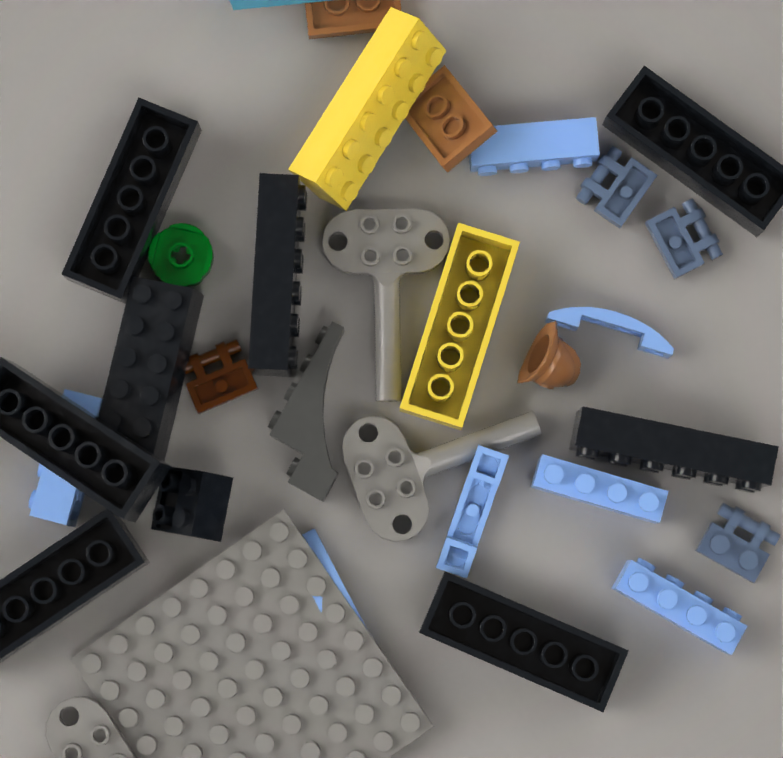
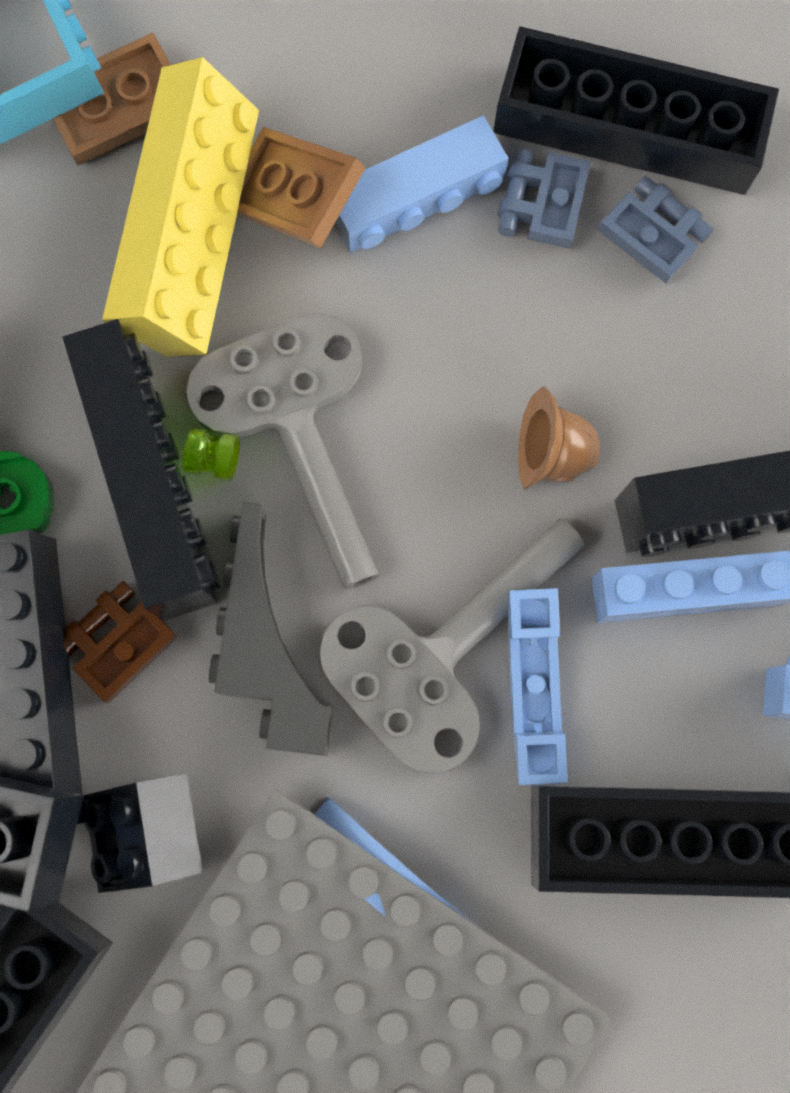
camera: 25 degrees left, 5 degrees down
(317, 278) = (211, 454): none -> clear neon green wheel
(459, 326) = (419, 446): light yellow brick -> none
(649, 341) = (670, 366): light blue slope -> none

